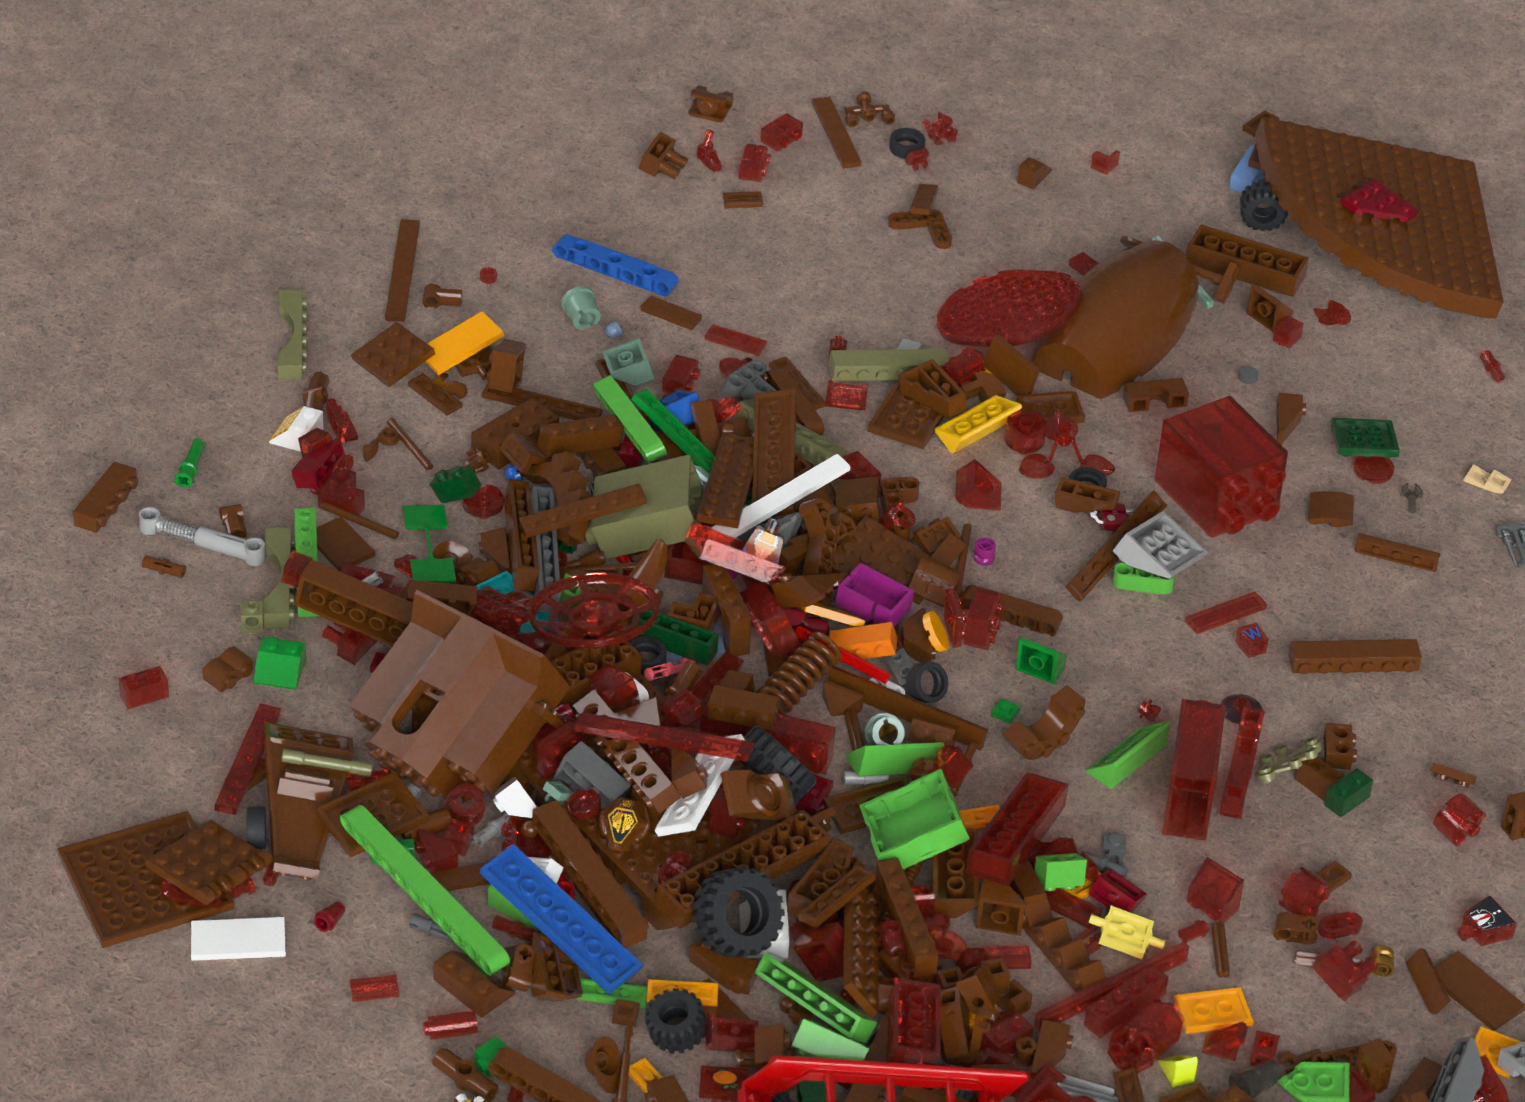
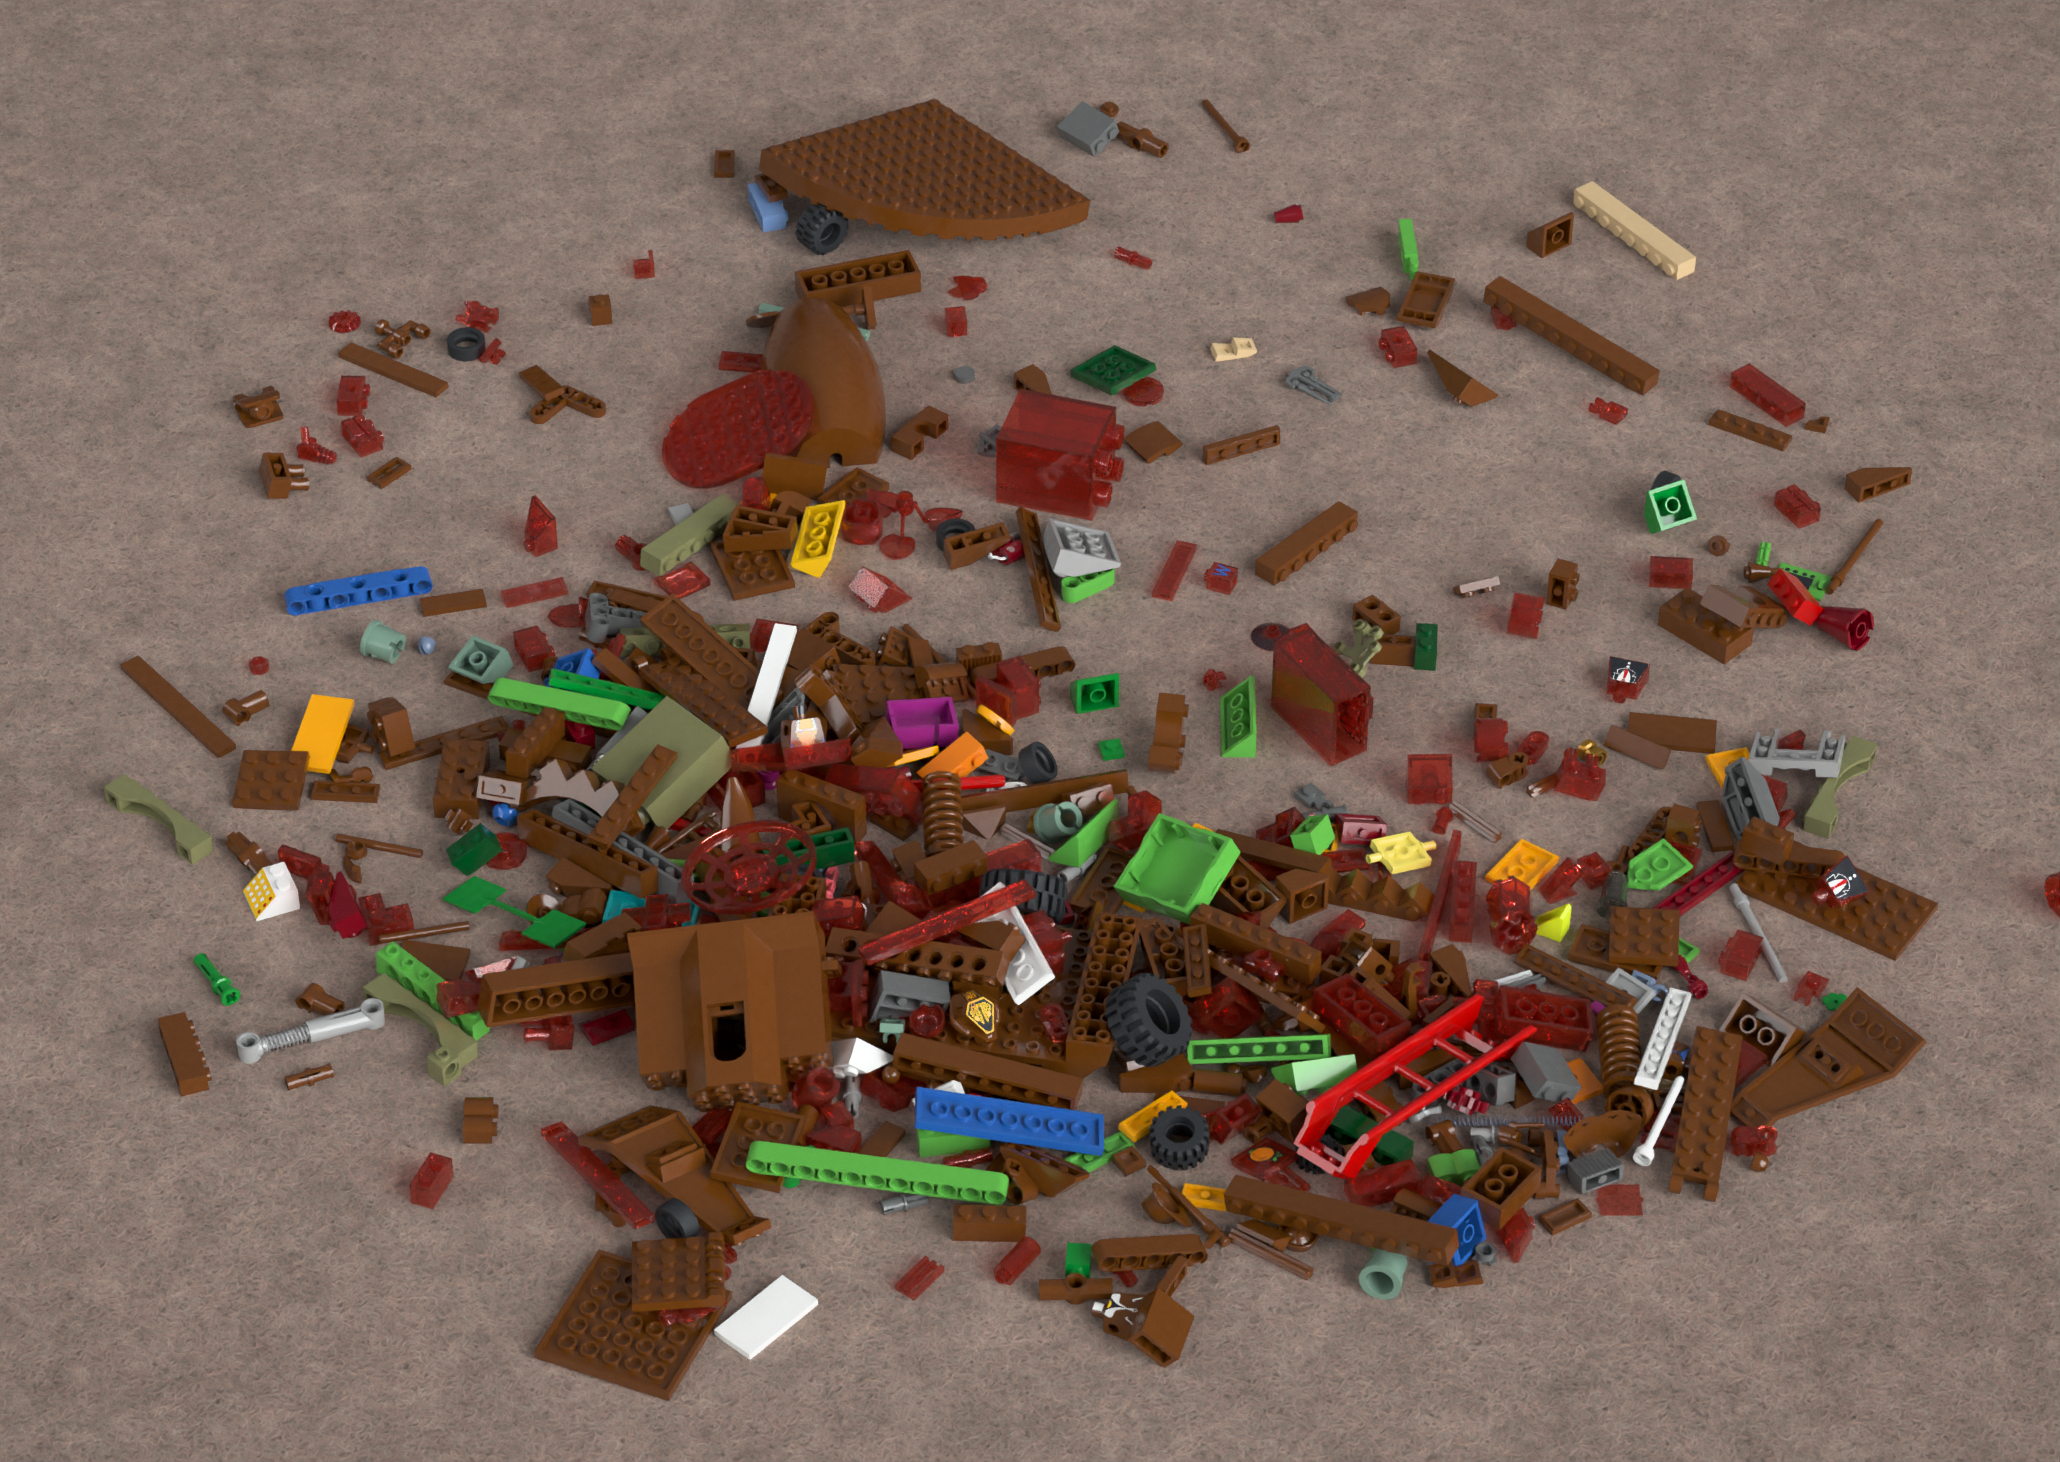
camera: 40 degrees left, 0 degrees up
(280, 663) = (515, 1086): green slope -> none
(301, 758) = (655, 1140): olive piece -> none
(329, 916) = (817, 1251): dark red cone -> none
(758, 795) = (1064, 921): reddish brown slope -> none
(763, 1003) = (1219, 1082): none -> reddish brown brick
(786, 297) = (540, 529): none -> clear red slope
(845, 85) = (351, 322): none -> clear red gear
(889, 517) = (853, 653): clear red piece -> none
(984, 551) = (947, 637): magenta wheel -> none
(985, 577) = (978, 655): none -> reddish brown brick
(1016, 829) = (1251, 825): clear red brick -> none
(1266, 308) = (922, 311): reddish brown slope -> none
(1380, 202) = (920, 170): dark red plate -> none
(1418, 492) = (1195, 395): clear smoke bar -> none

